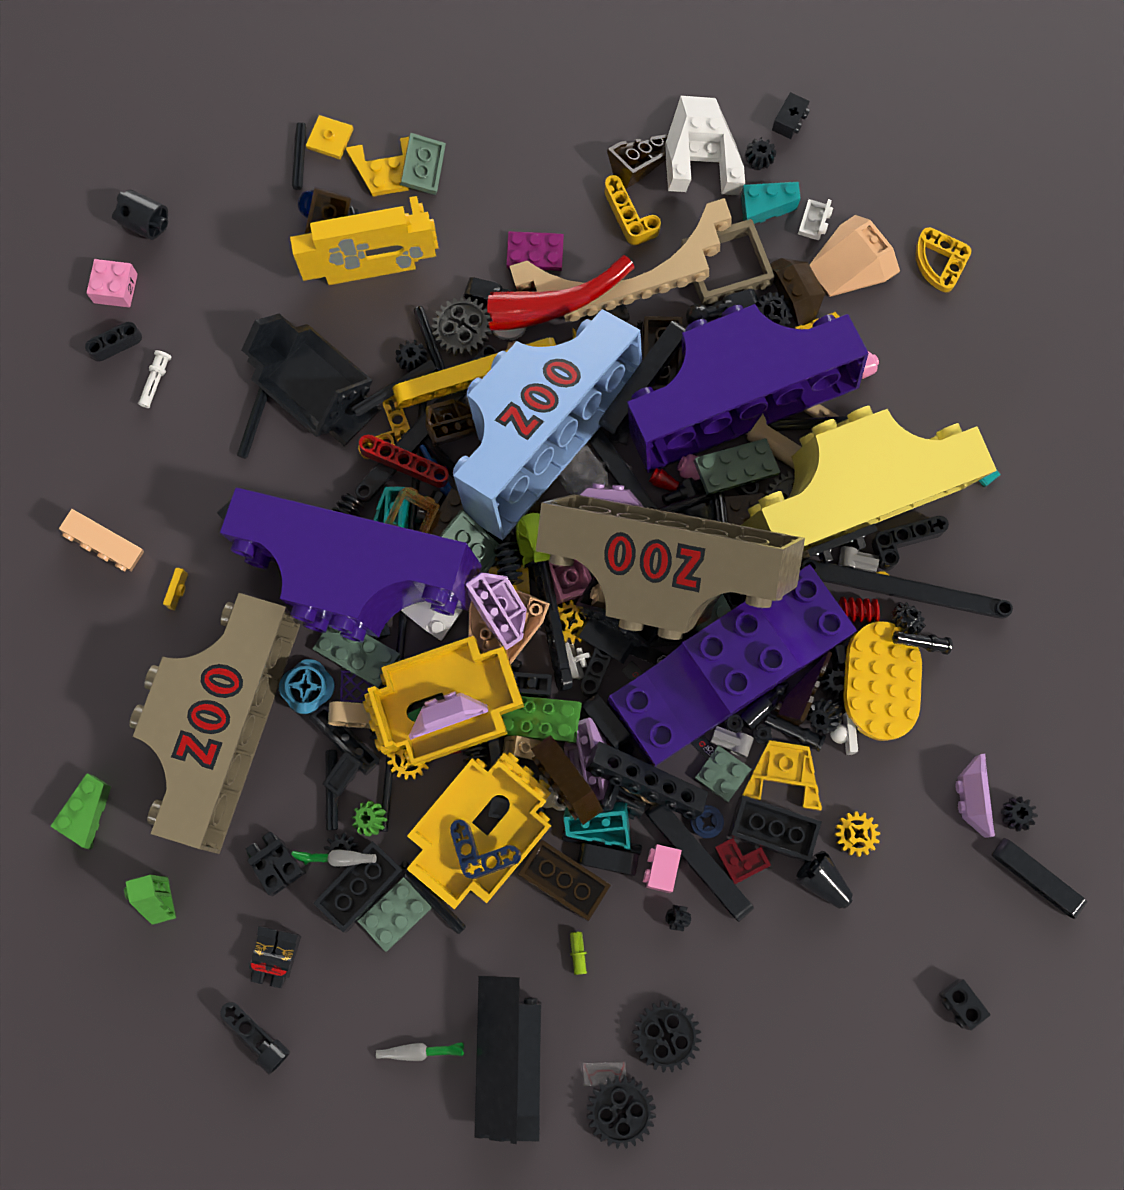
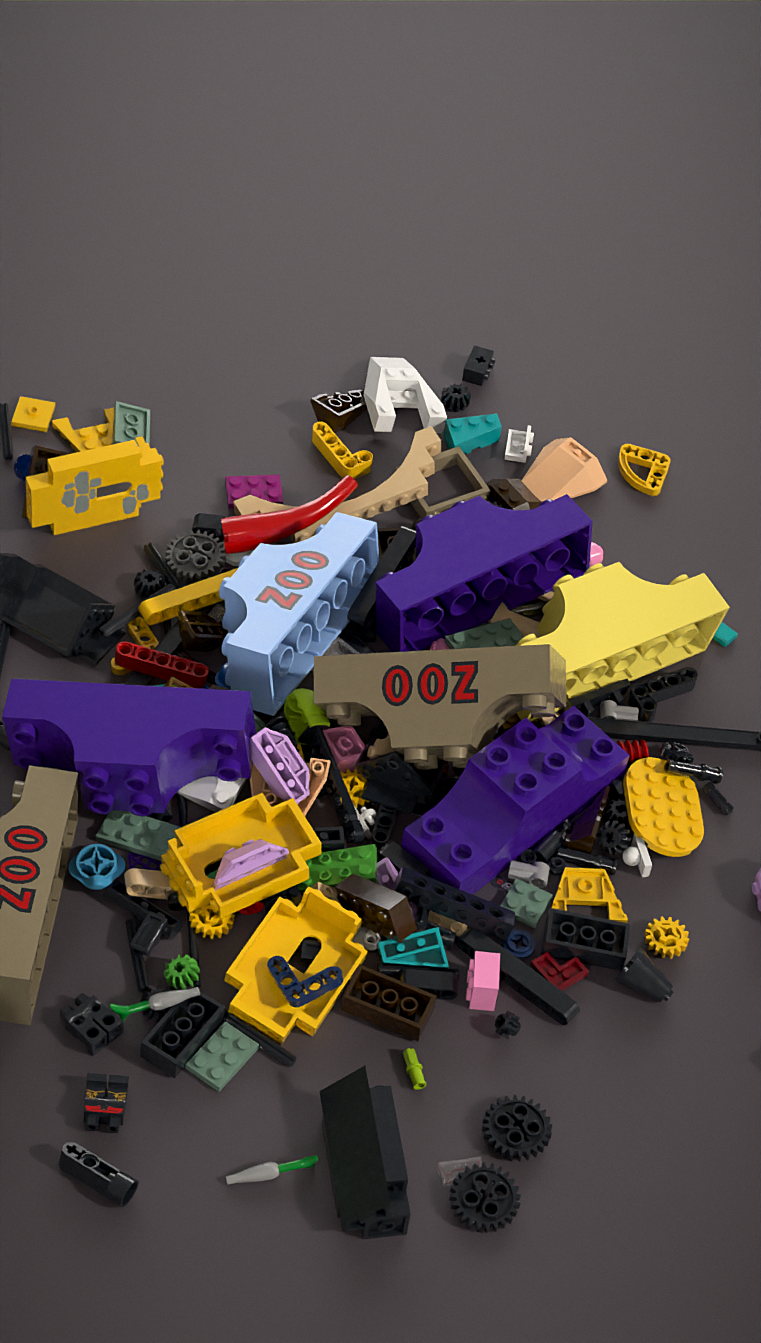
camera: 15 degrees left, 25 degrees down
(942, 672) = (717, 797): none -> black axle

